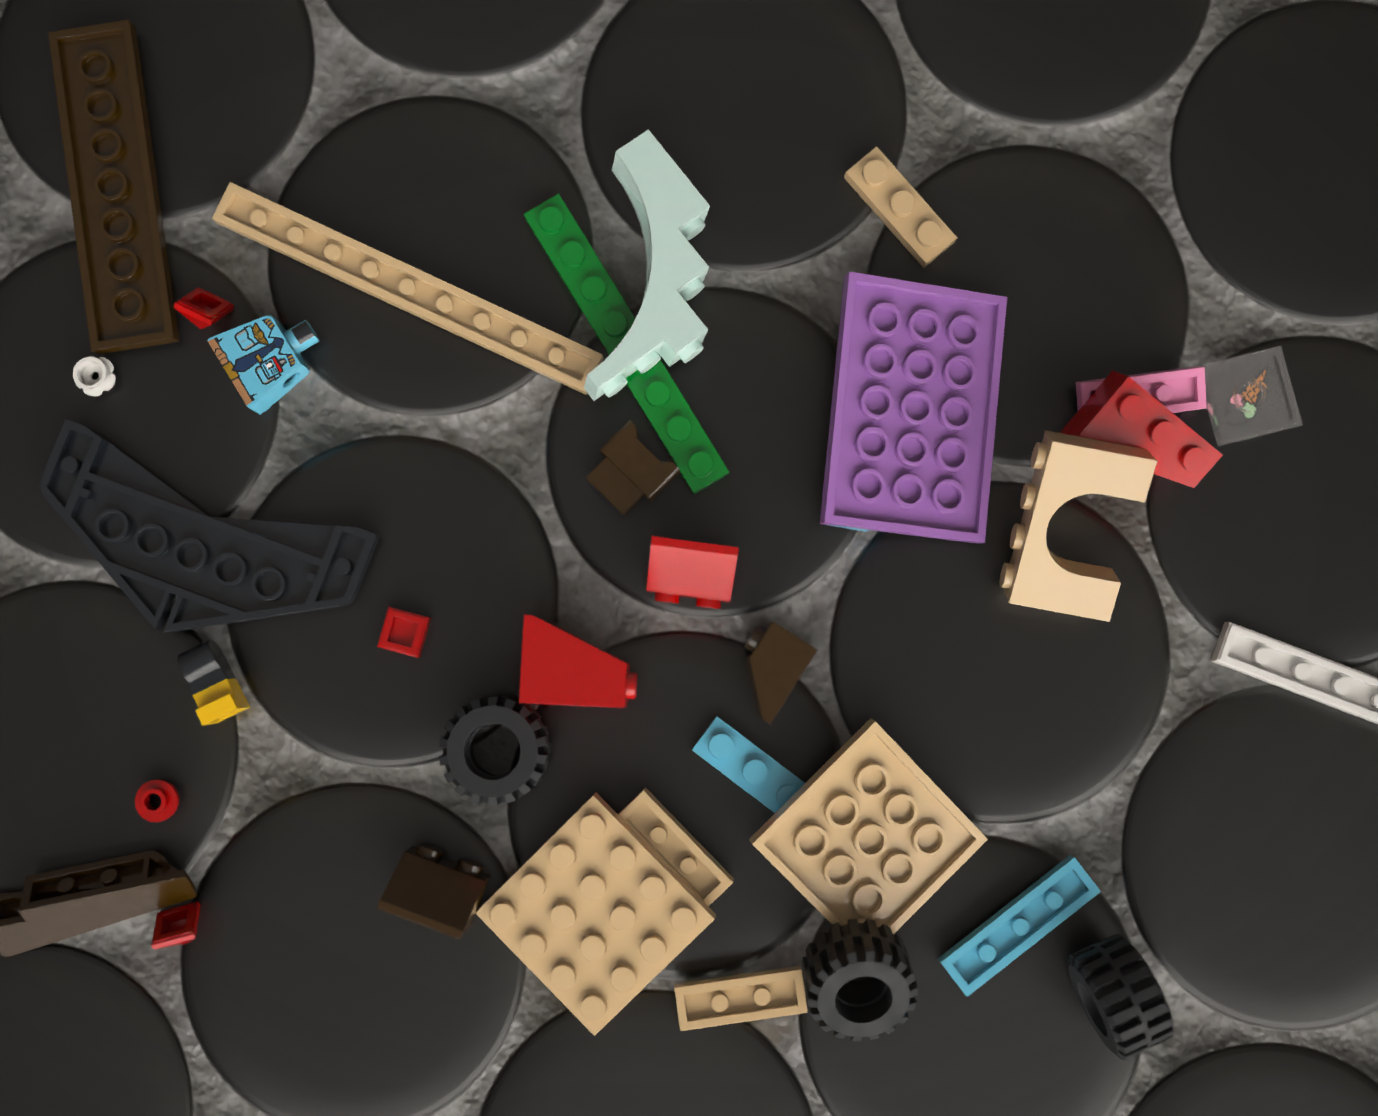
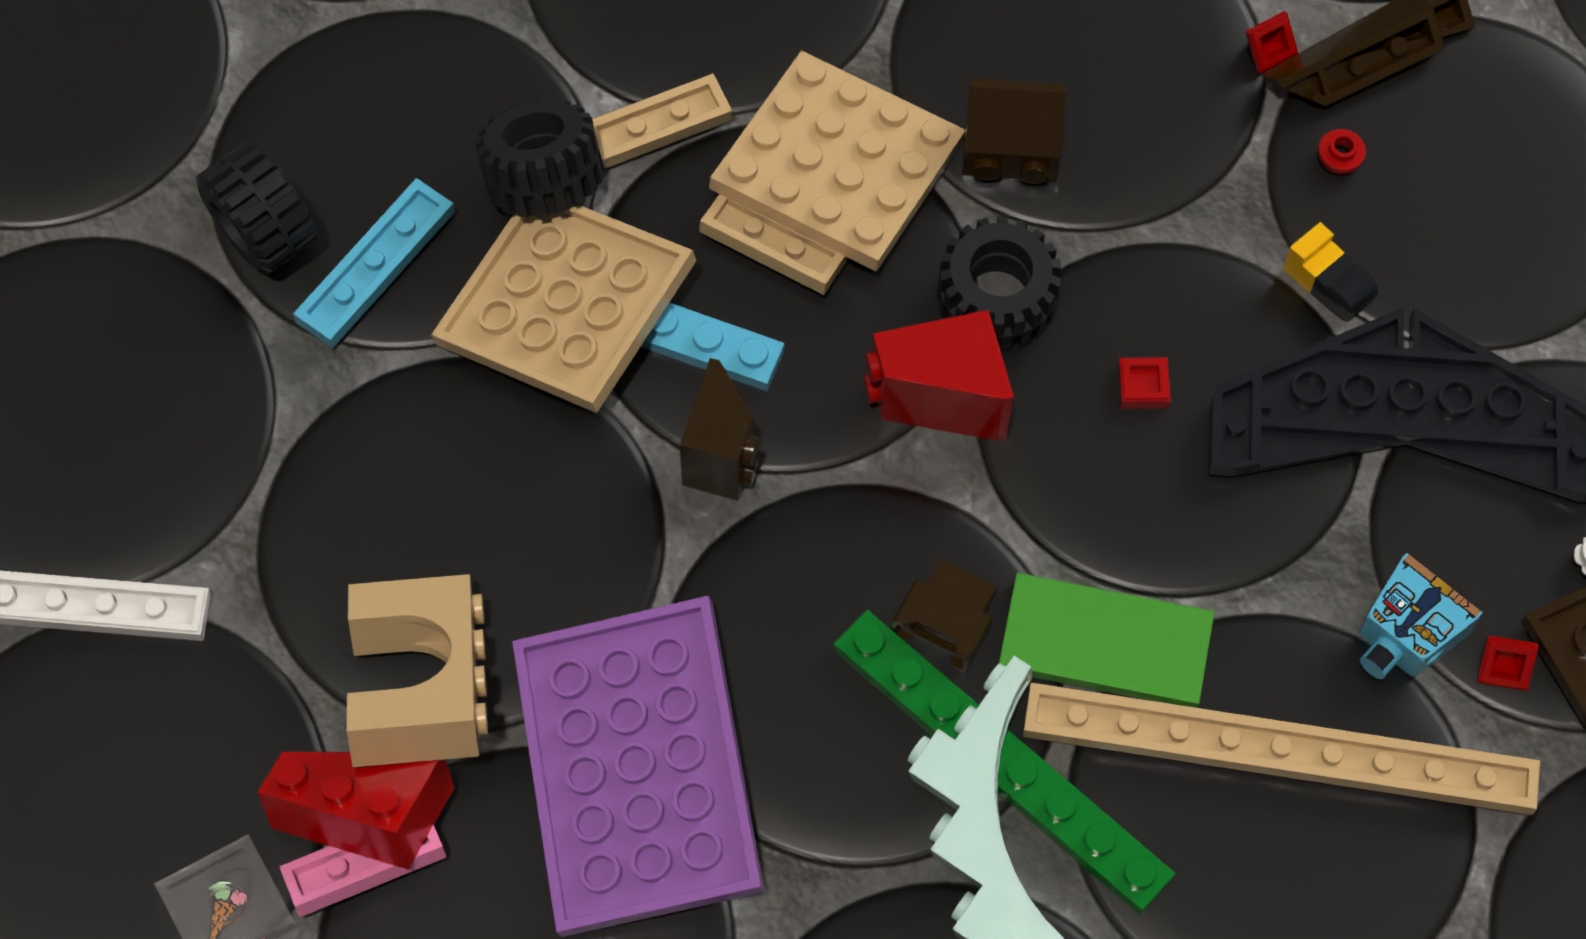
camera: 165 degrees right, 20 degrees down
(511, 417) = (1108, 640): none -> bright green tile
(691, 571) = (844, 520): slope -> none

